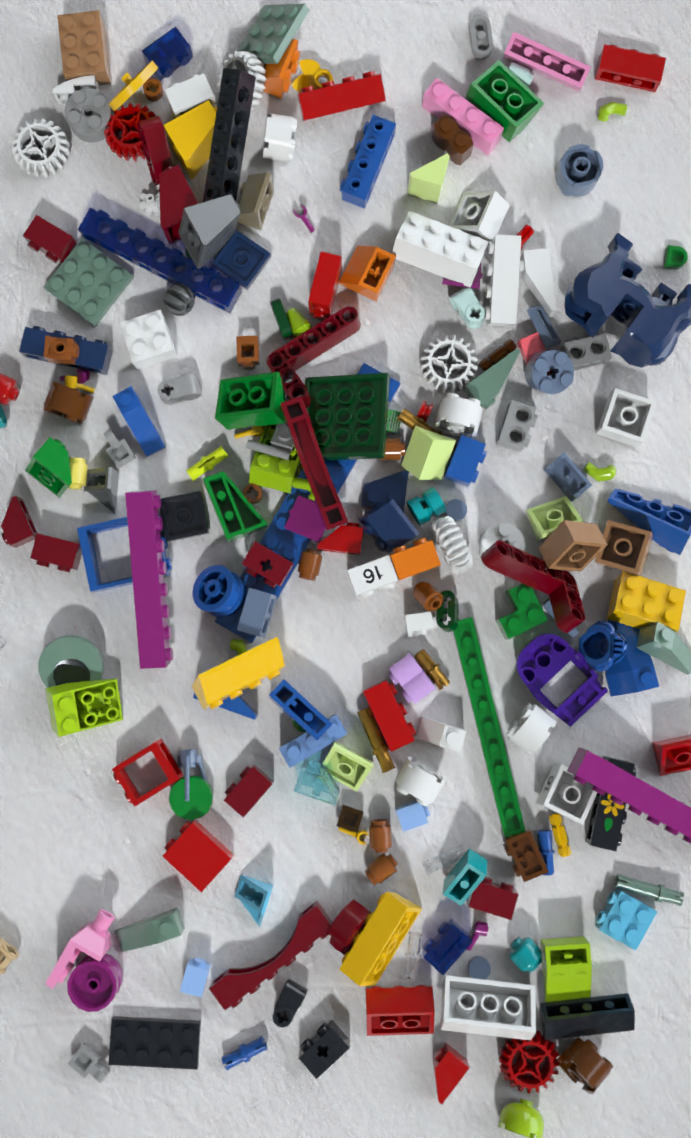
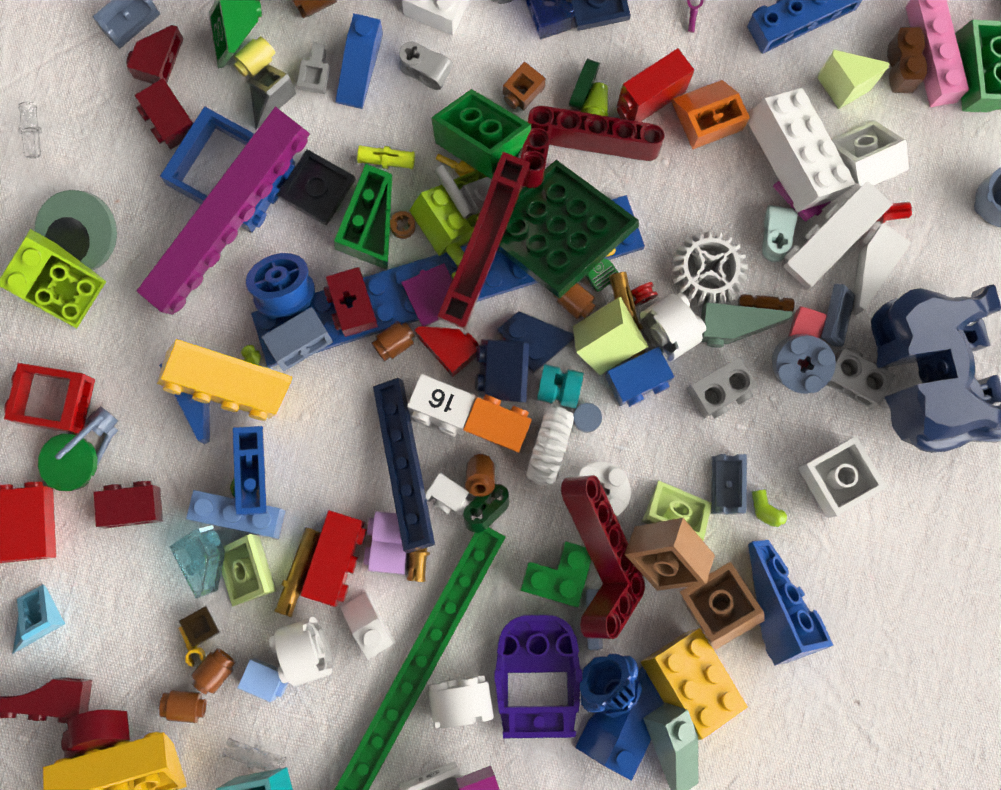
camera: 35 degrees right, 5 degrees down
(381, 629) = (403, 466): none -> dark blue plate

